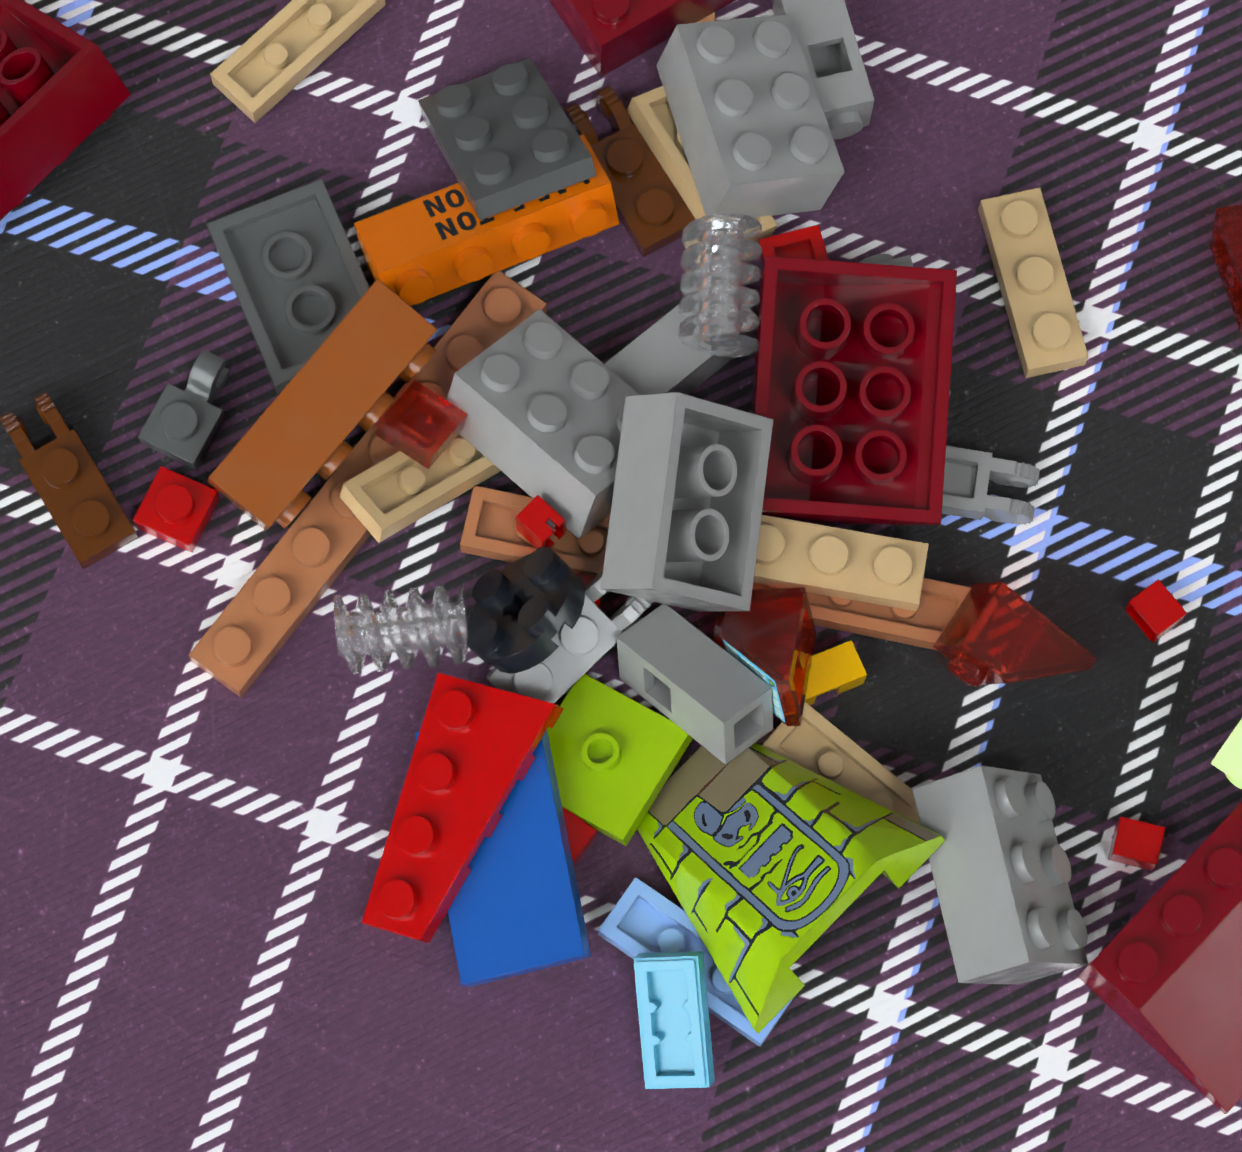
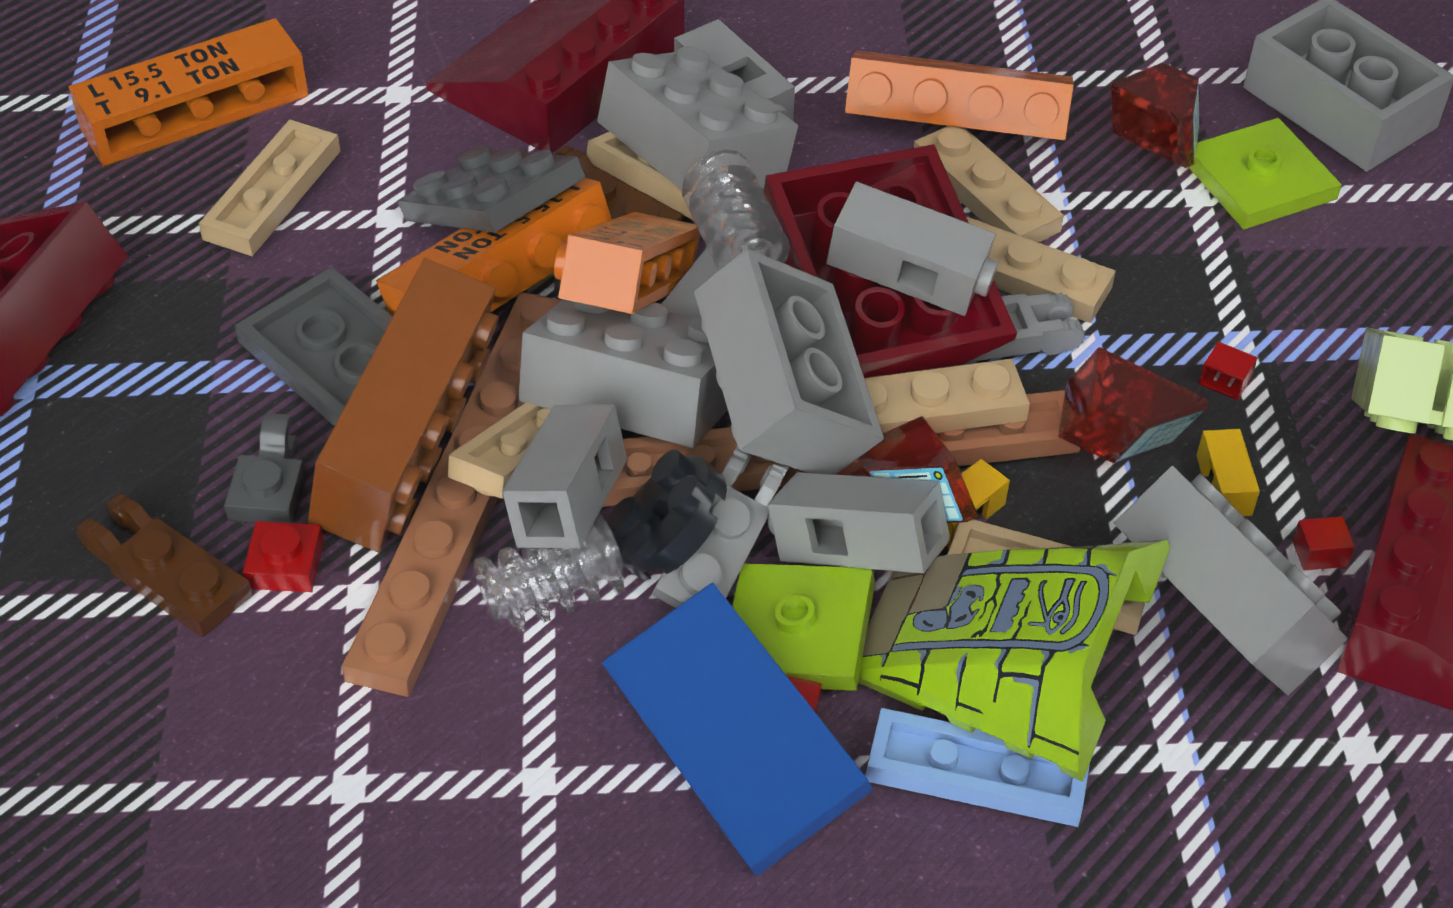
camera: 20 degrees left, 25 degrees down
(421, 424) = (505, 394): clear red plate -> none
(440, 547) = (565, 476): none -> light grey brick
(458, 779) = (666, 693): red wing -> none
(539, 522) = (649, 442): red piece -> none
(592, 309) = (626, 261): none -> orange brick
(674, 1020) = (985, 818): medium azure plate -> none
(867, 408) = (912, 249): none -> light grey brick
(1020, 407) = (1040, 269): none -> tan plate
(1050, 161) = (959, 95): none -> orange brick
(1088, 733) = (1231, 468): none -> yellow piece

